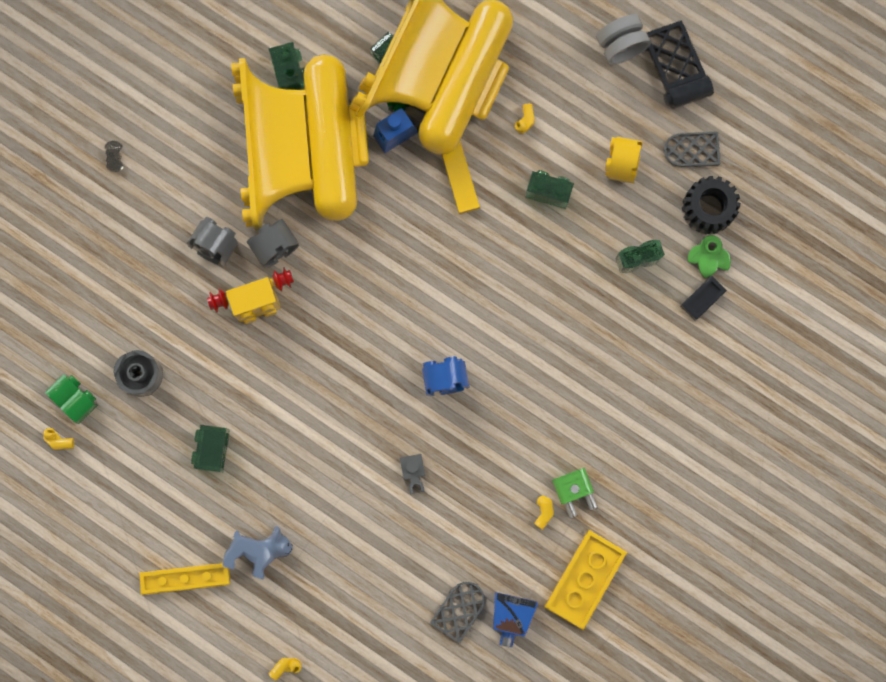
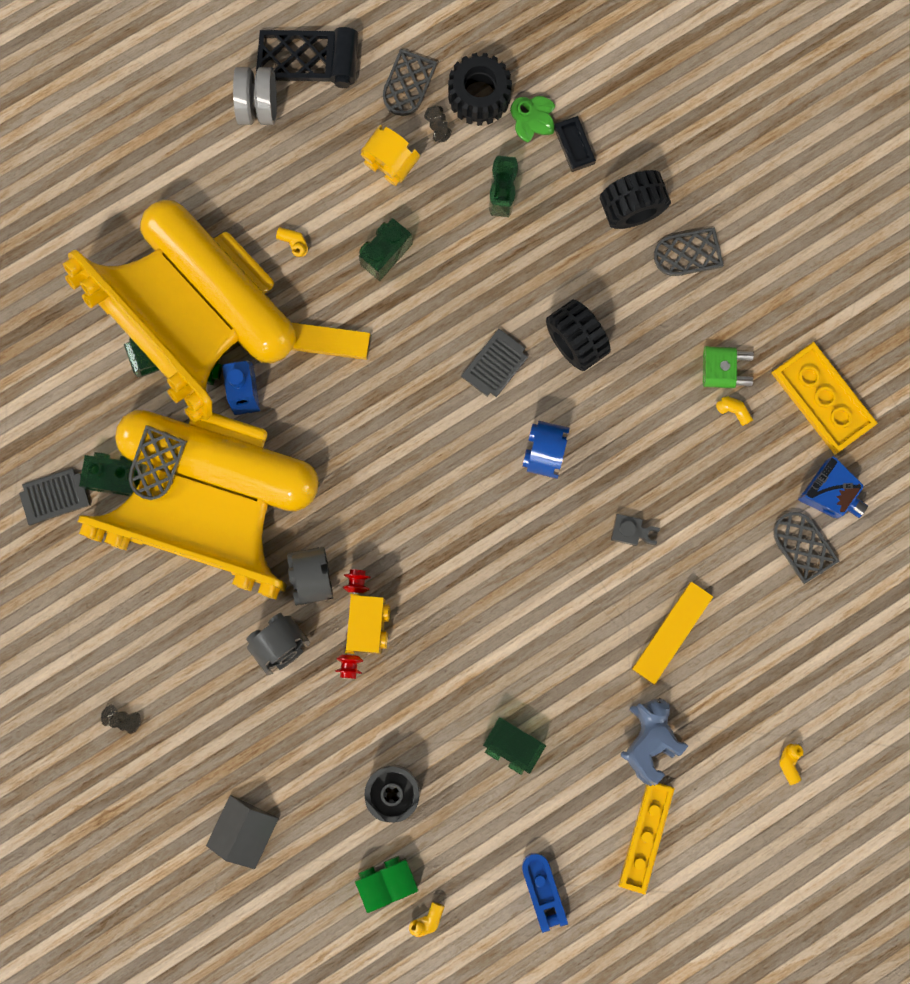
camera: 70 degrees left, 0 degrees up
(67, 279) = (241, 833): none -> dark grey slope
(112, 517) = (543, 891): none -> blue plate
(255, 34) = (53, 496): none -> dark grey window
(306, 86) = (148, 429): none -> dark grey window
(347, 534) = (672, 633): none -> yellow tile
(498, 312) = (495, 364): none -> dark grey window
(544, 363) = (578, 335): none -> black tyre
(640, 428) = (719, 264): none -> dark grey window
(669, 186) = (438, 123): none -> clear smoke piece
(674, 361) = (635, 199): none -> black tyre

